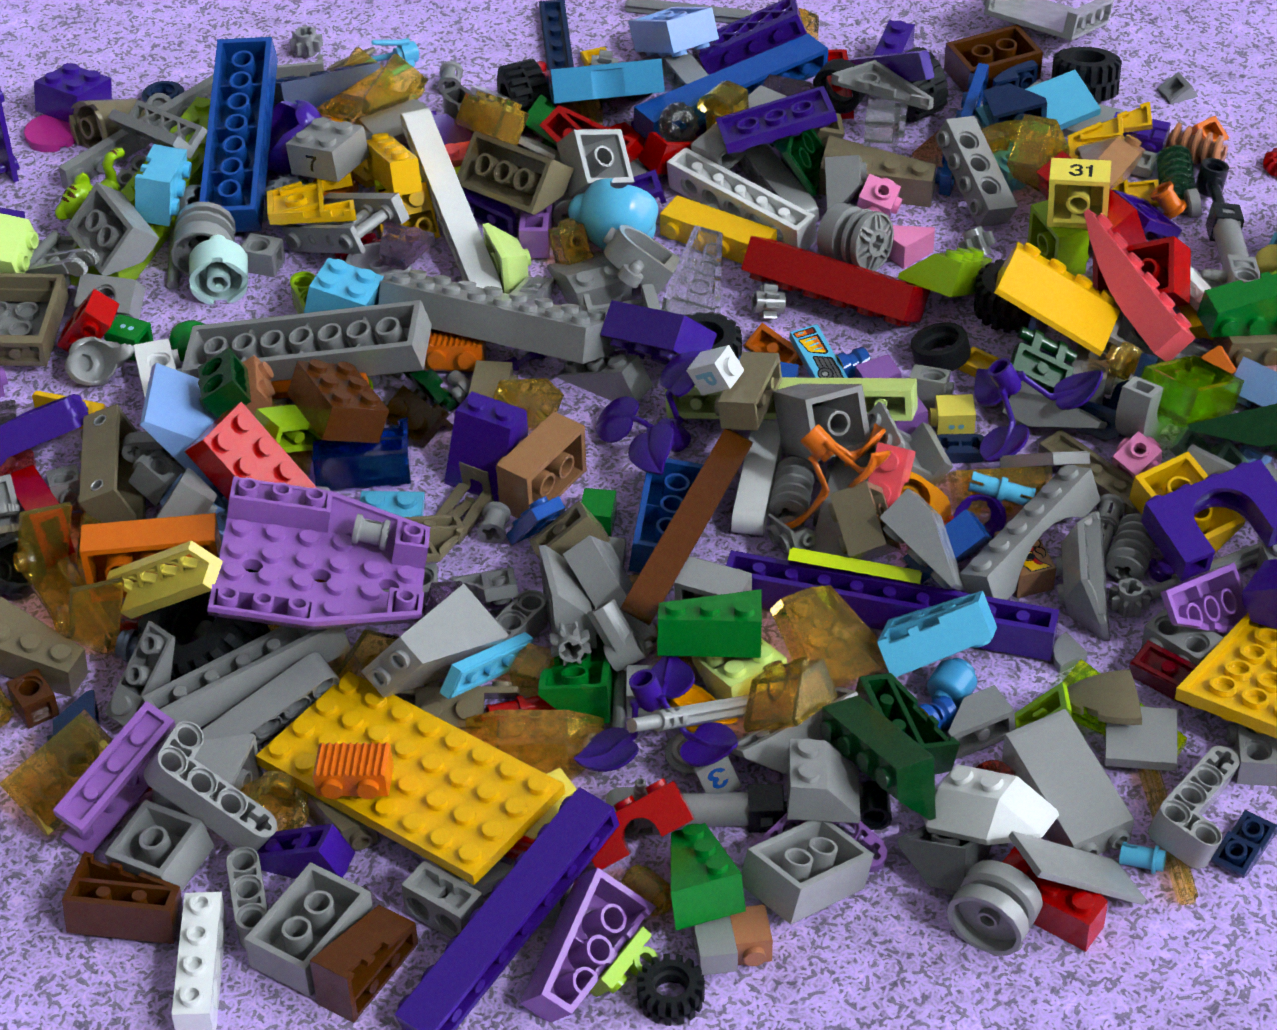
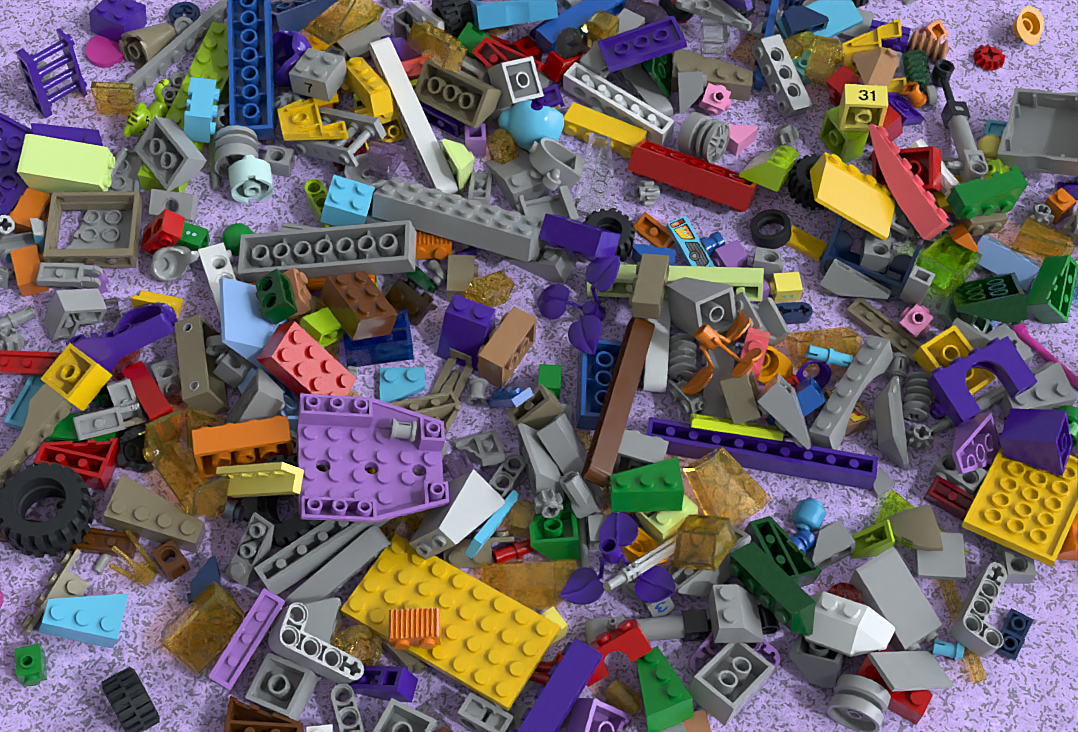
camera: 10 degrees left, 15 degrees up
(48, 174) = (114, 97): none -> clear yellow plate
(66, 262) = (136, 180): light grey hinge -> none
(159, 135) = (187, 60): light grey fence -> none
(715, 370) = (627, 275): white brick -> none
(936, 633) = (796, 481): medium azure wedge -> none
(1003, 381) = (817, 262): dark purple plant -> none
(1039, 366) = (844, 253): plate -> none
(1045, 459) = (854, 327): light grey tile -> none
(1123, 360) = (902, 243): clear yellow gear -> none

